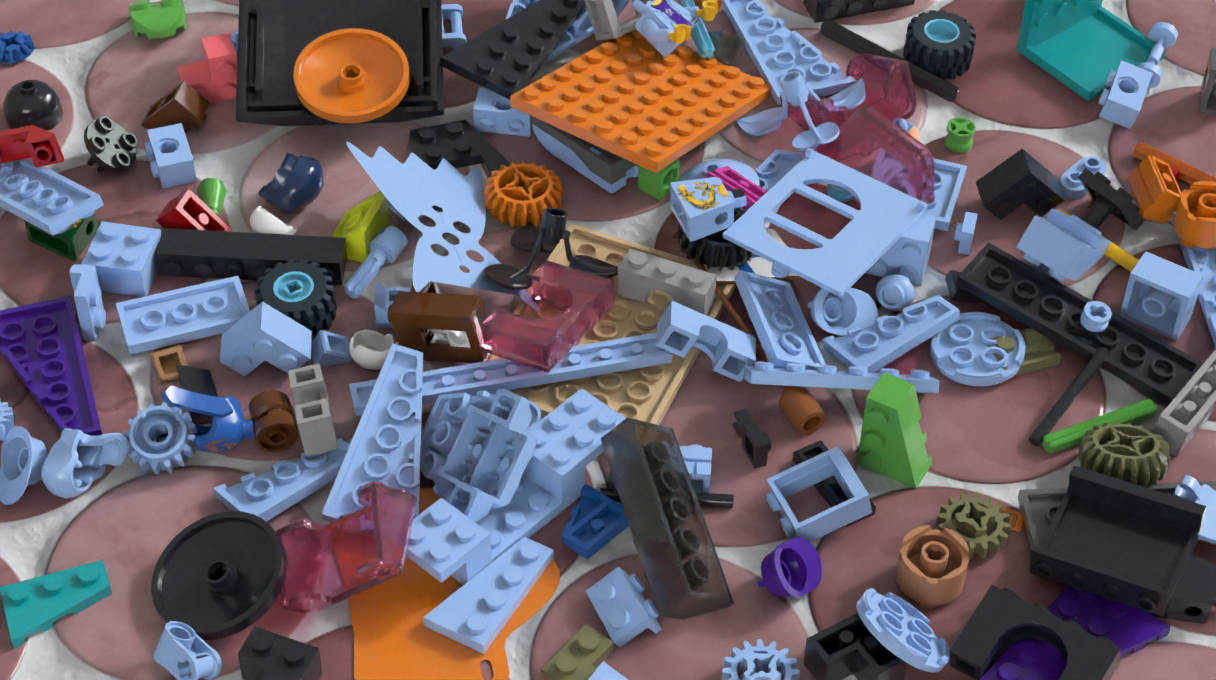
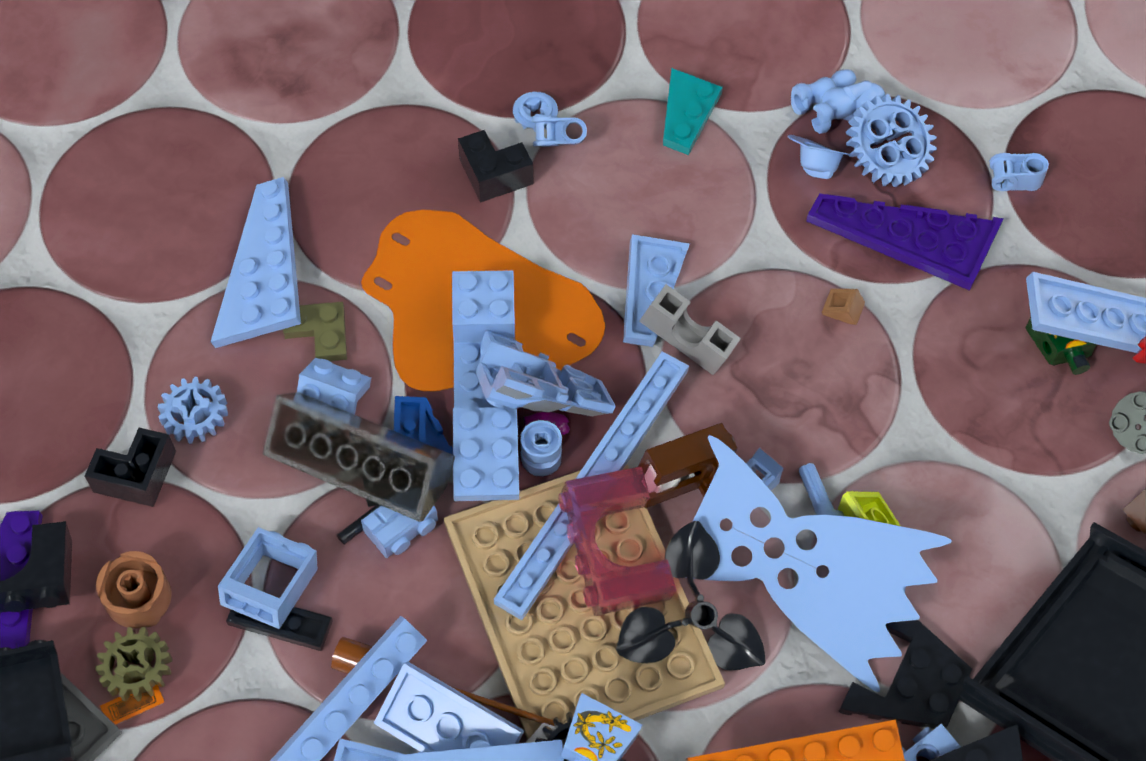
camera: 135 degrees right, 15 degrees up
(80, 460) = (785, 177): light blue head -> none
(88, 300) = (949, 282): light blue slope -> none
(124, 258) = (984, 342): light blue brick -> none
(164, 454) = (761, 236): light blue gear -> none
(171, 156) = (1078, 465): light blue brick -> none
(182, 314) = (885, 344): light blue plate -> none
(191, 213) = (988, 417): red slope -> none
(200, 382) = (792, 297): black slope -> none
(212, 193) = (1010, 452): bright green cone -> none
(220, 574) = (601, 185): black dish -> none
(228, 420) = (738, 273): blue piece -> none
(245, 254) = (908, 428): black brick -> none
(265, 222) = (932, 464): white hair -> none
(268, 337) = (792, 353): light blue brick -> none
(273, 421) = (708, 308): reddish brown wheel -> none
(295, 183) = (969, 514): dark blue helmet -> none
(300, 293) = (824, 413): black wheel -> none
(330, 349) = (757, 412): light blue slope -> none
(349, 554) = (534, 256): clear pink windscreen -> none
(351, 75) = (1058, 634): orange dish -> none
(370, 348) = (729, 415): white hair -> none
(387, 437) = (597, 335): light blue wing -> none
(490, 598) = (429, 327): light blue wing -> none
(522, 193) = (811, 687): orange gear -> none
(643, 273) = (546, 672): light grey arch -> none
(726, 346) = (503, 620): light blue arch -> none
(754, 441) = (365, 595): black plate -> none
(791, 569) = (239, 501): dark purple piece -> none
(892, 432) = (249, 672): bright green wedge -> none
(903, 630) = (110, 506): light blue tile -> none

